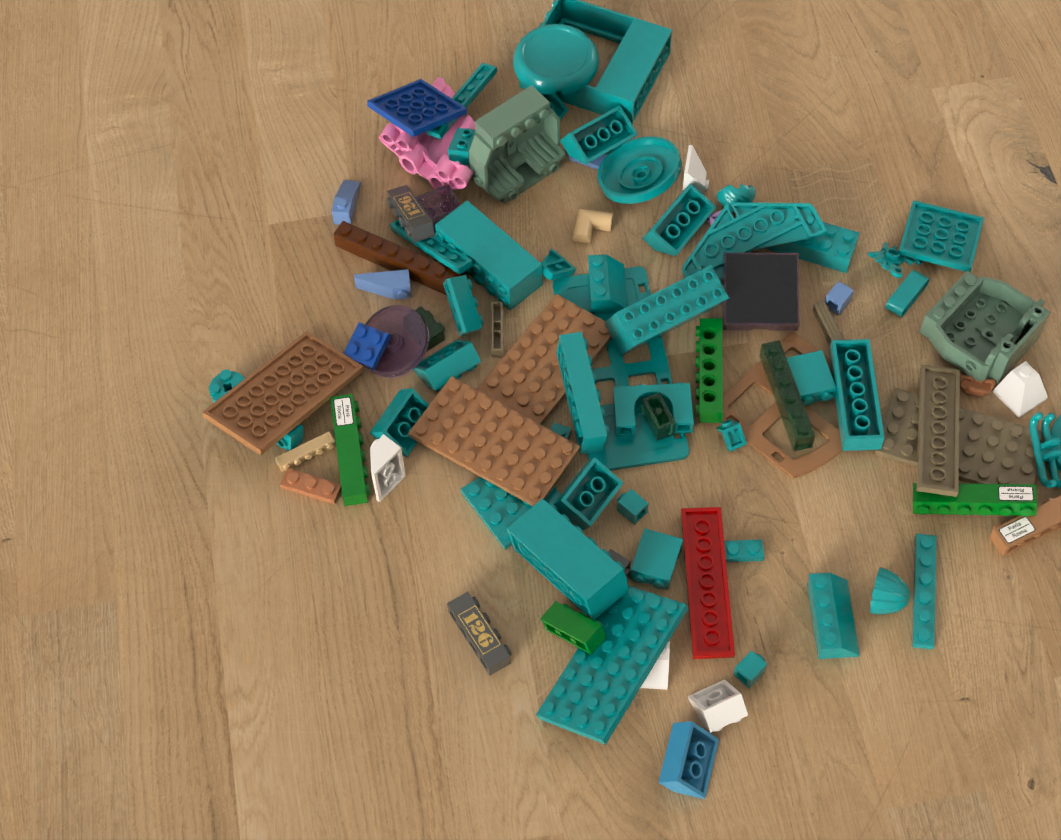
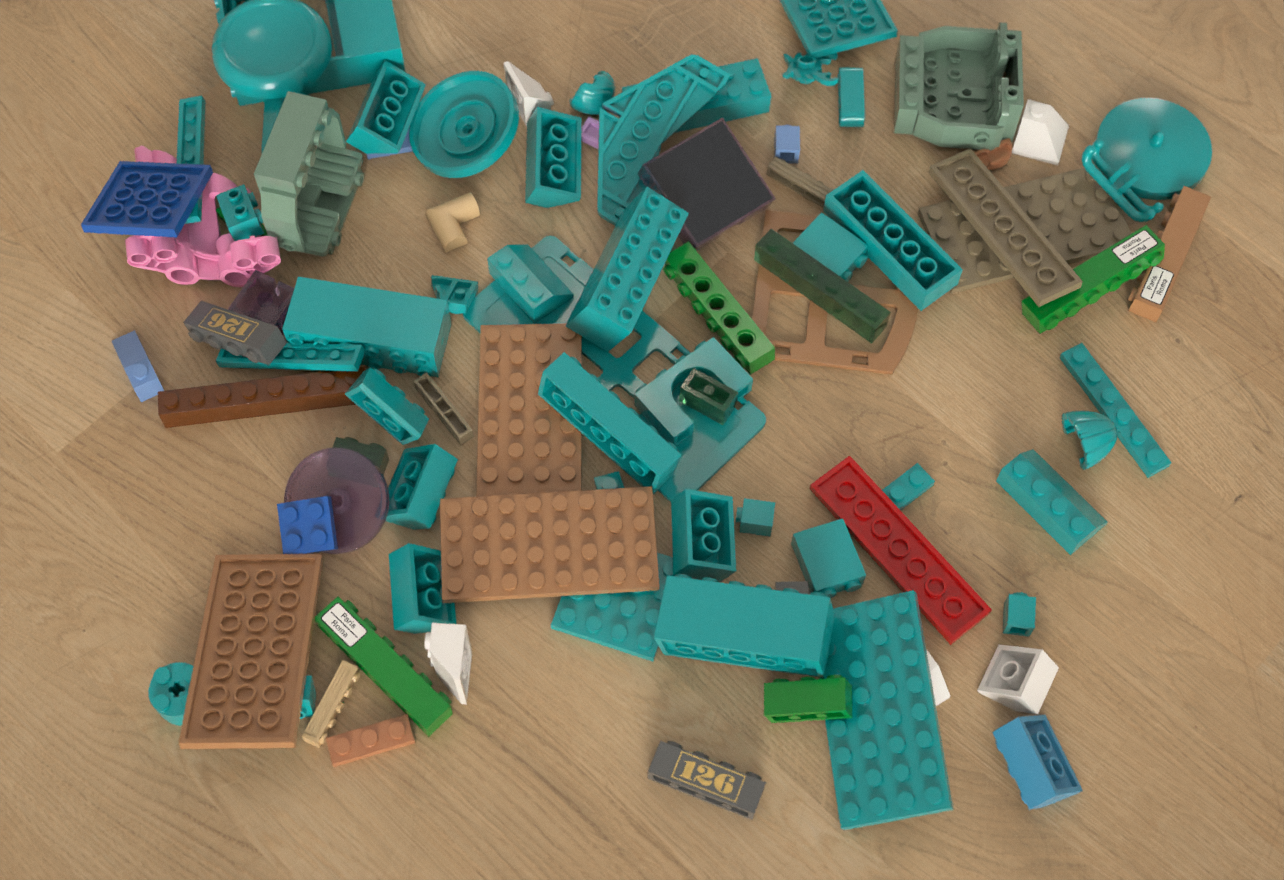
camera: 40 degrees left, 5 degrees up
(387, 284) = (271, 435): medium blue slope -> none
(732, 434) = (796, 365): teal bracket -> none

